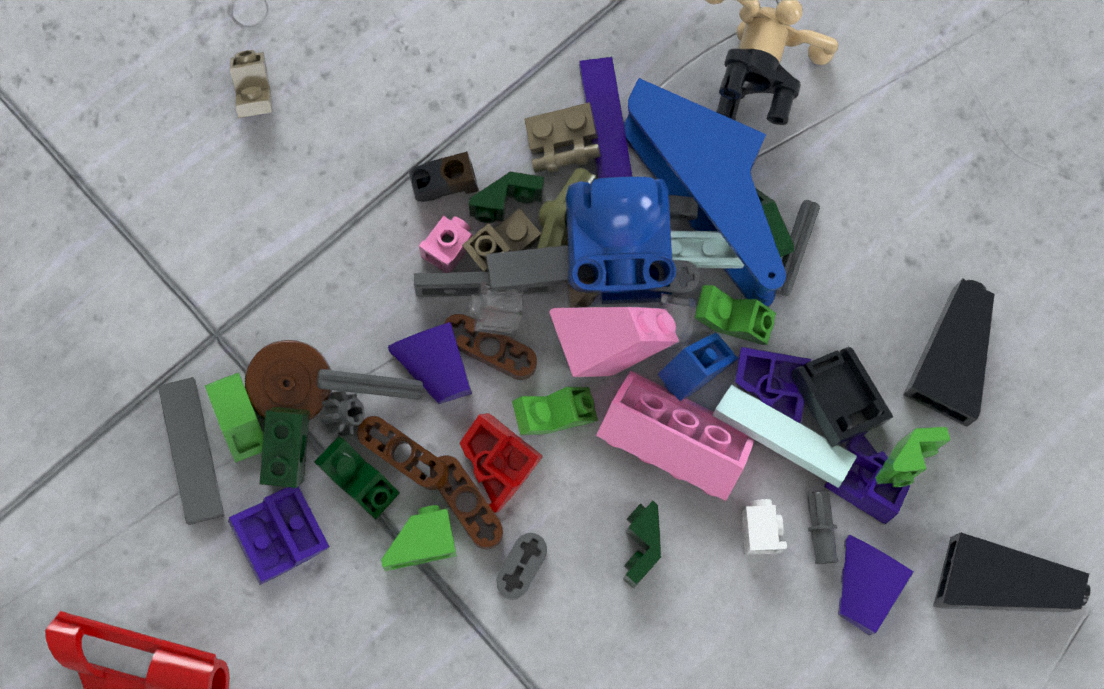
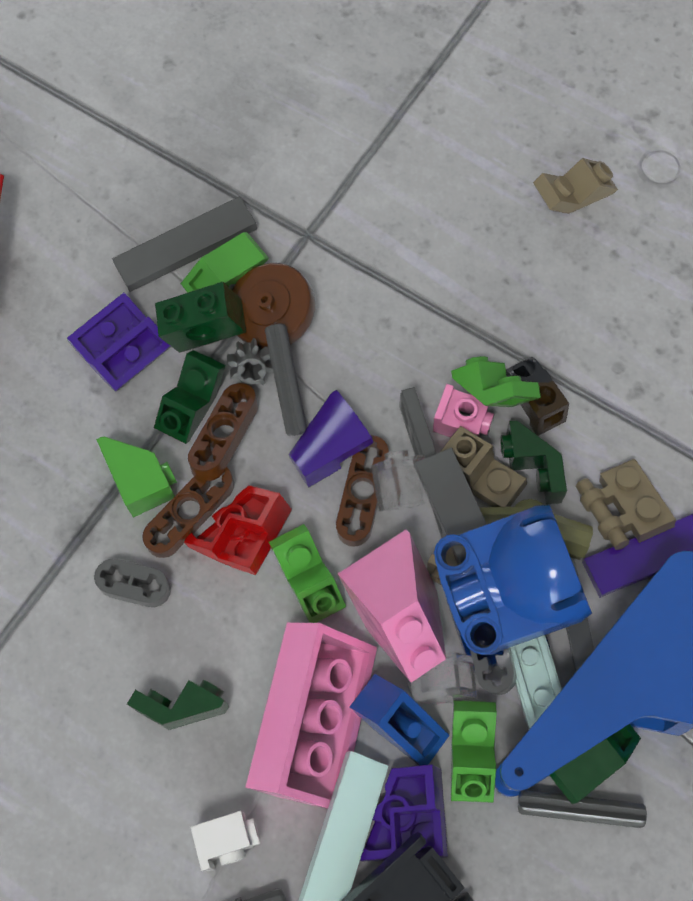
camera: 85 degrees right, 5 degrees down
(430, 212) = (490, 384): none -> bright green slope

